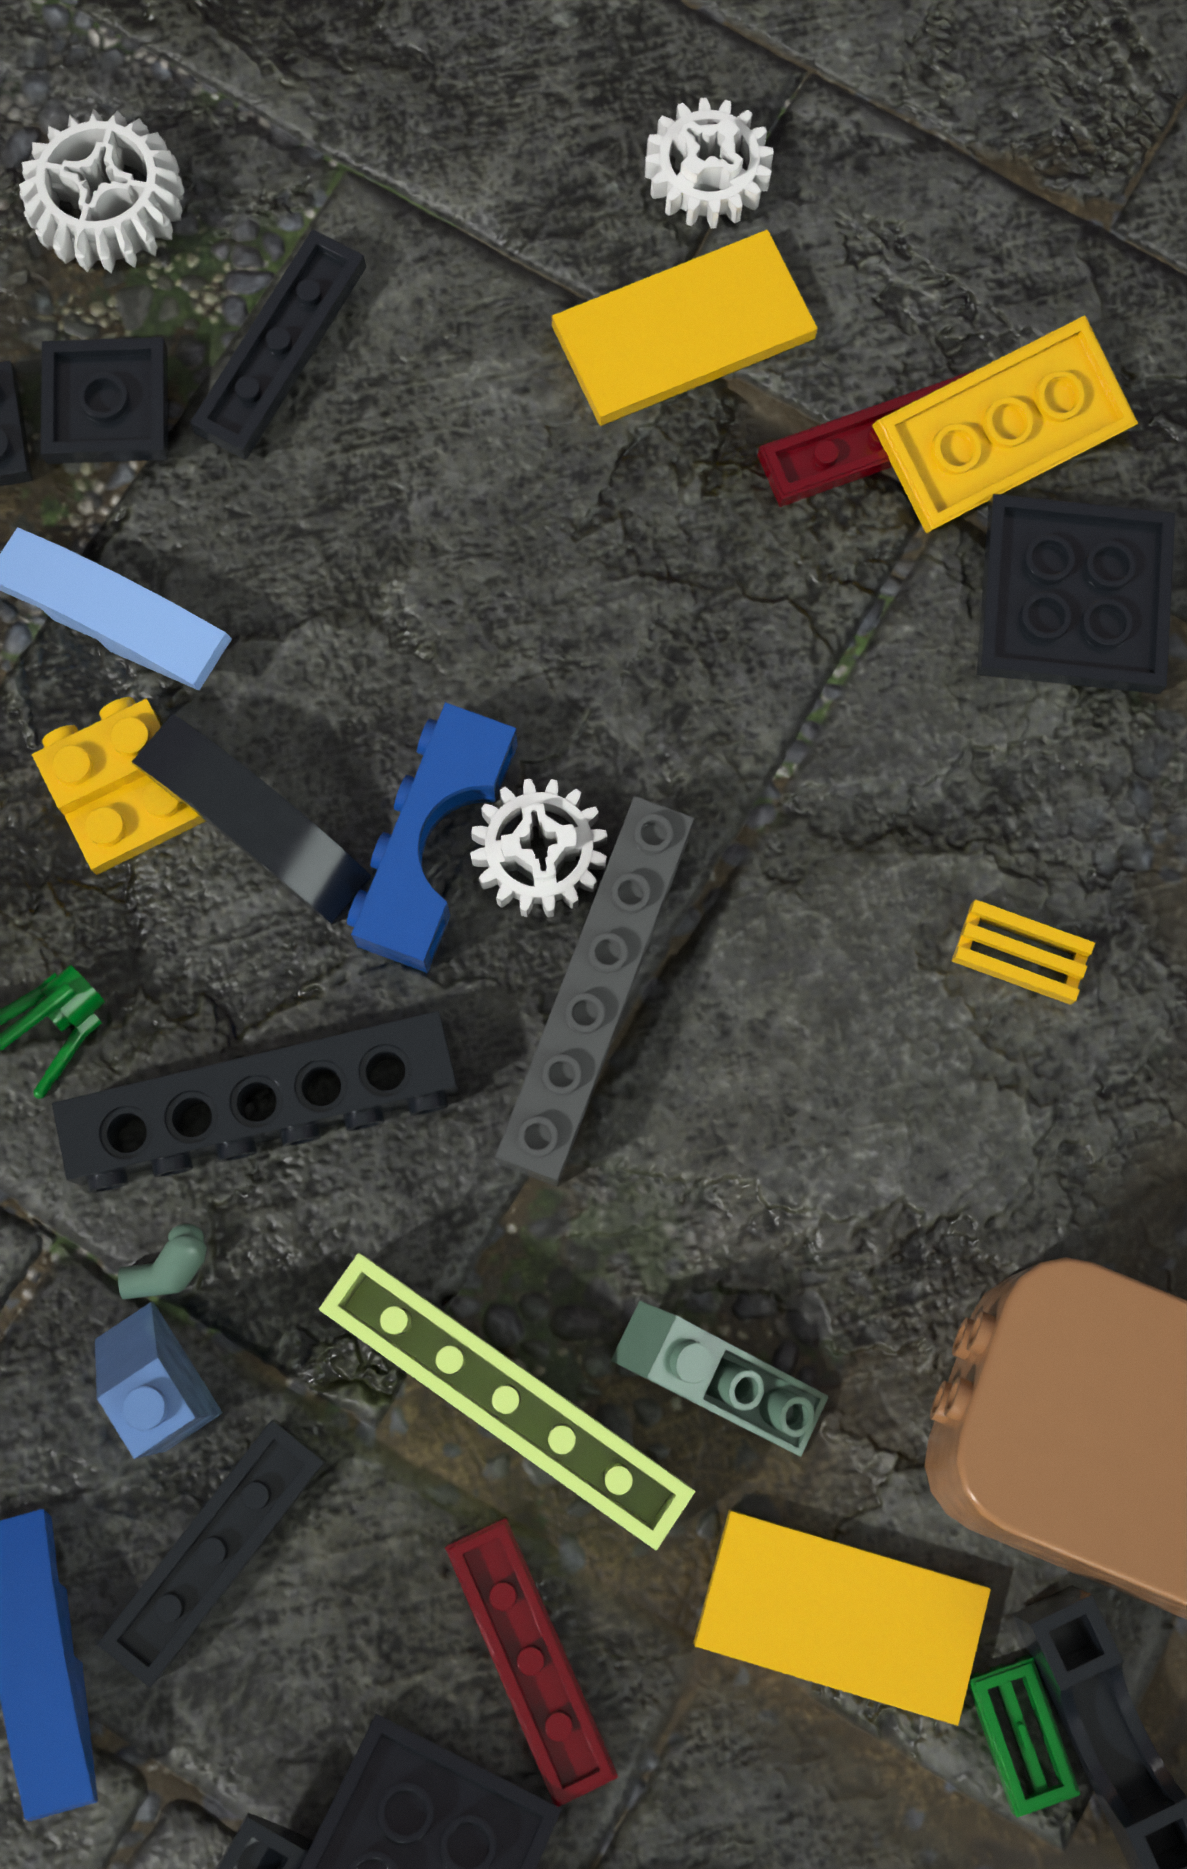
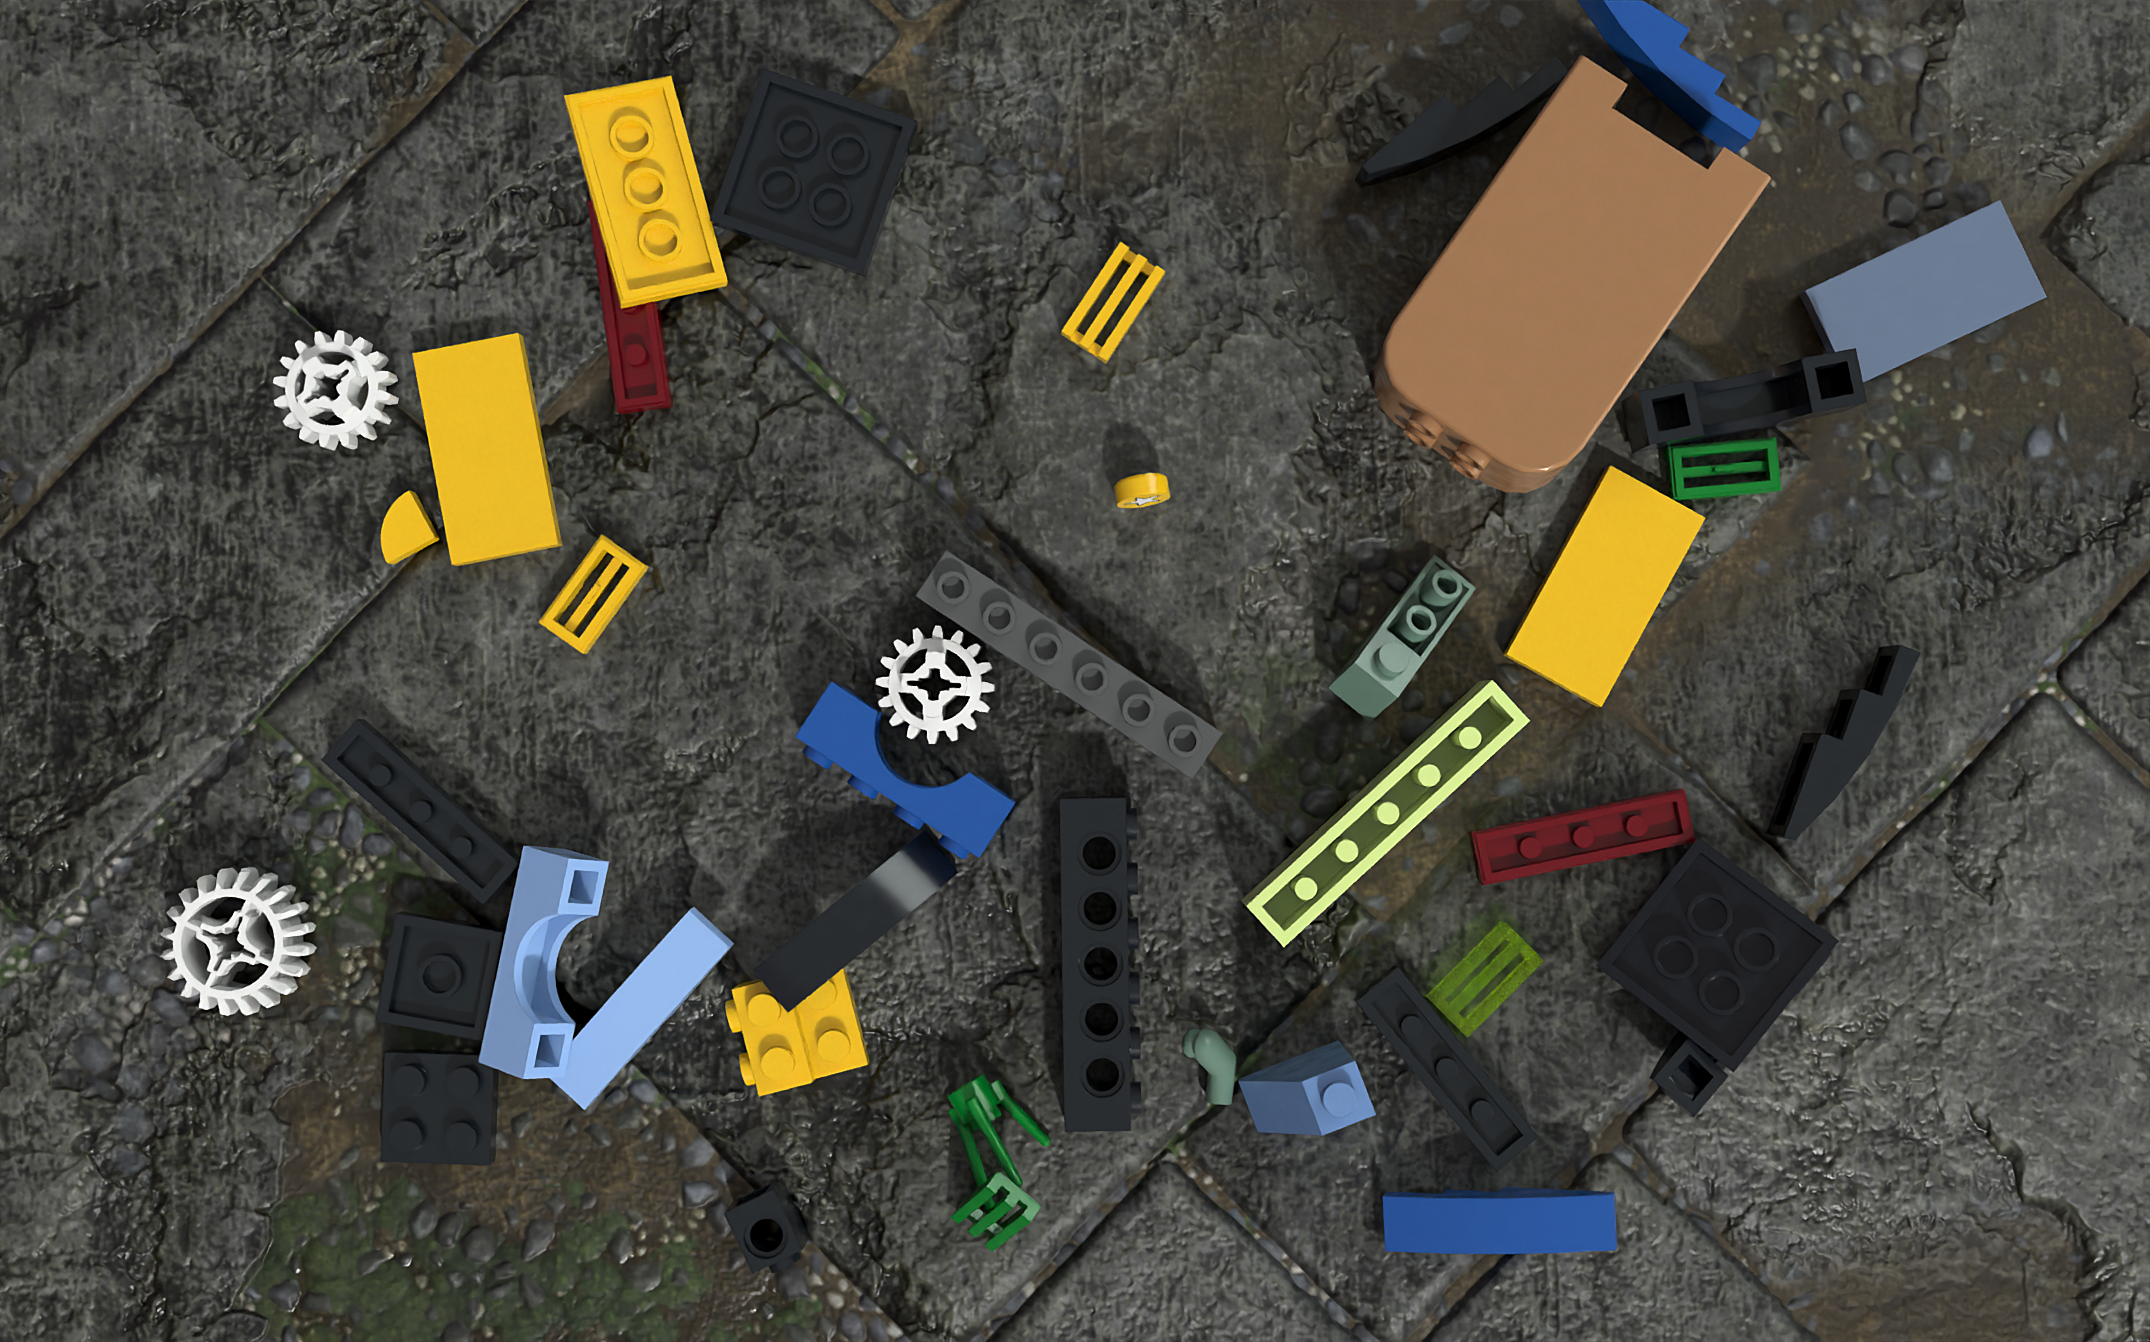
camera: 70 degrees left, 10 degrees up
(70, 493) = (526, 1022): none -> light blue arch
(315, 1599) = (1470, 963): none -> clear neon green tile
(547, 488) = (611, 605): none -> yellow tile
(579, 265) = (406, 529): none -> yellow tile
(816, 1030) = (1141, 490): none -> yellow tile

